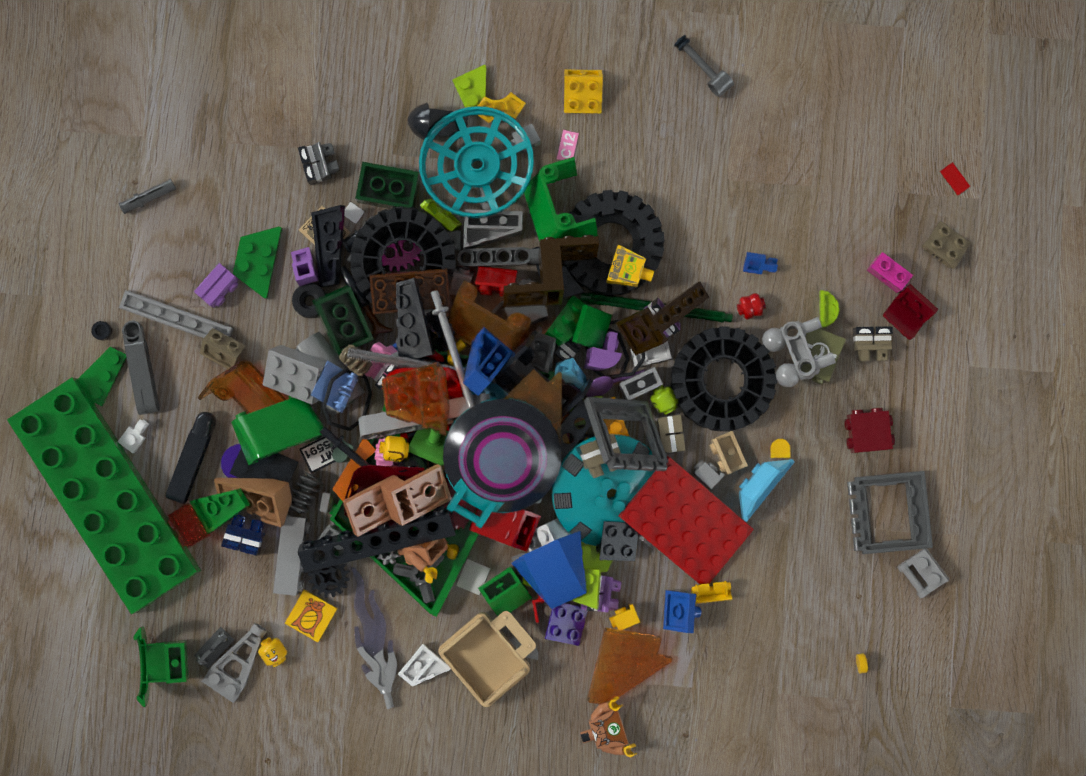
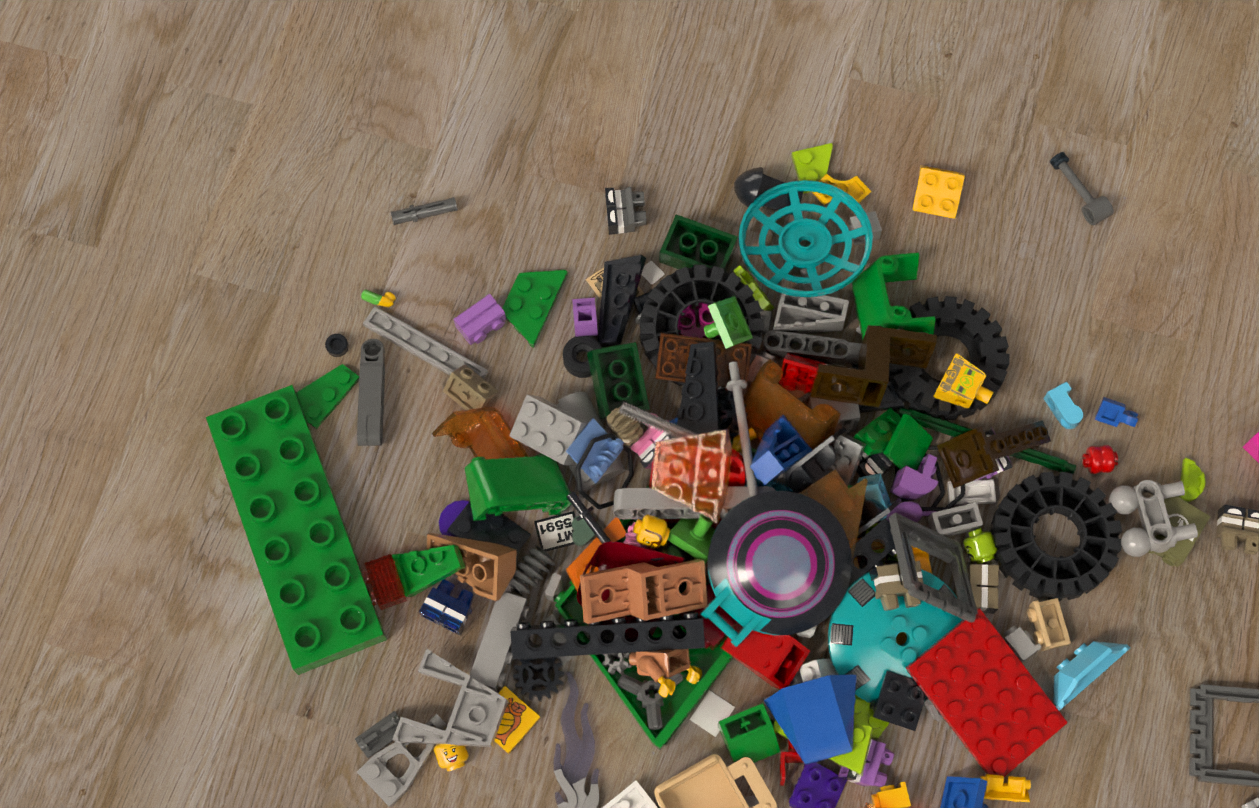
camera: 10 degrees right, 15 degrees down
(125, 284) = (376, 299): none -> arm
(133, 437) = (343, 470): white plate -> none
(160, 663) = (313, 736): green piece -> none
(191, 458) = (406, 505): black piece -> none
(284, 619) = (474, 716): none -> light grey wing
(364, 304) = (655, 401): piece -> none
(424, 257) = (728, 323): none -> bright green tile
(567, 145) = (911, 242): bright pink sticker -> none
(714, 266) = (1063, 407): none -> medium azure leg
(780, 449) = (1112, 632): yellow tile -> none
(869, 431) = (1226, 631): dark red brick -> none

